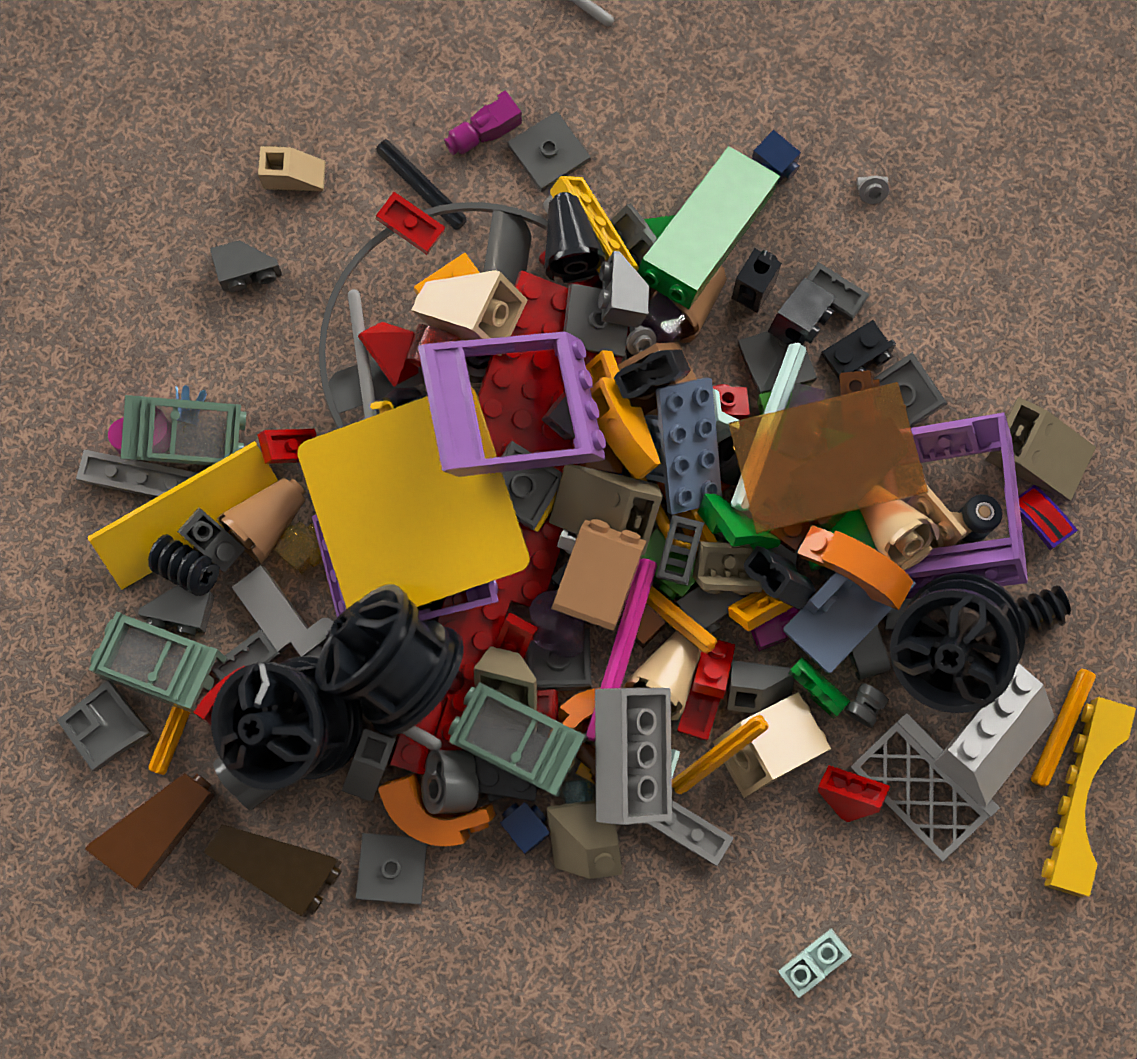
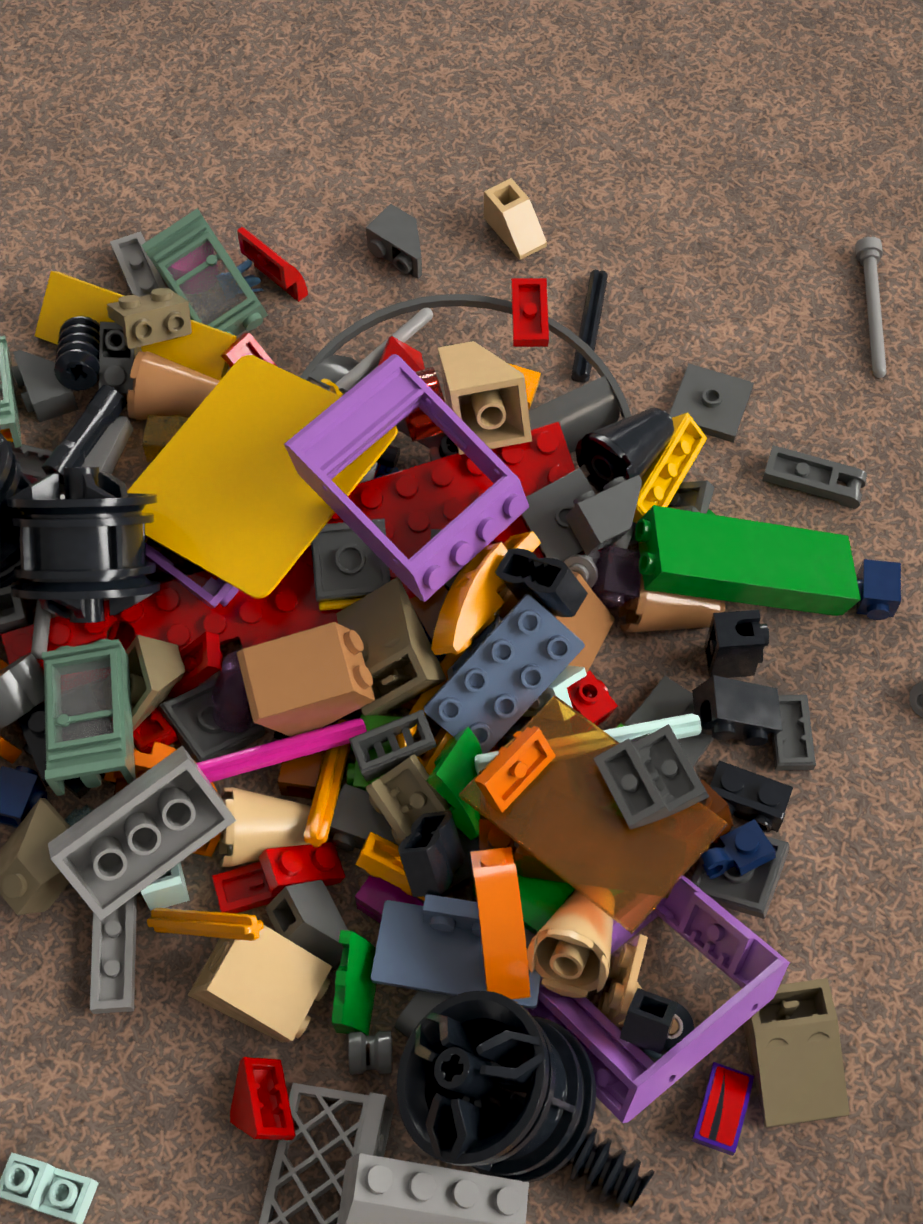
camera: 55 degrees right, 15 degrees down
(199, 492) = (151, 317): none -> dark tan bracket
(201, 373) = (272, 264): none -> red slope
(250, 586) = (84, 435): none -> black axle
(486, 125) = (690, 336): magenta piece -> none
(659, 130) = (815, 476): none -> dark grey plate
(771, 484) = (515, 768): none -> orange plate
(835, 405) = (650, 777): none -> dark grey slope
(901, 373) = (742, 848): none -> dark blue plate
(981, 521) = (649, 1021): none -> black plate

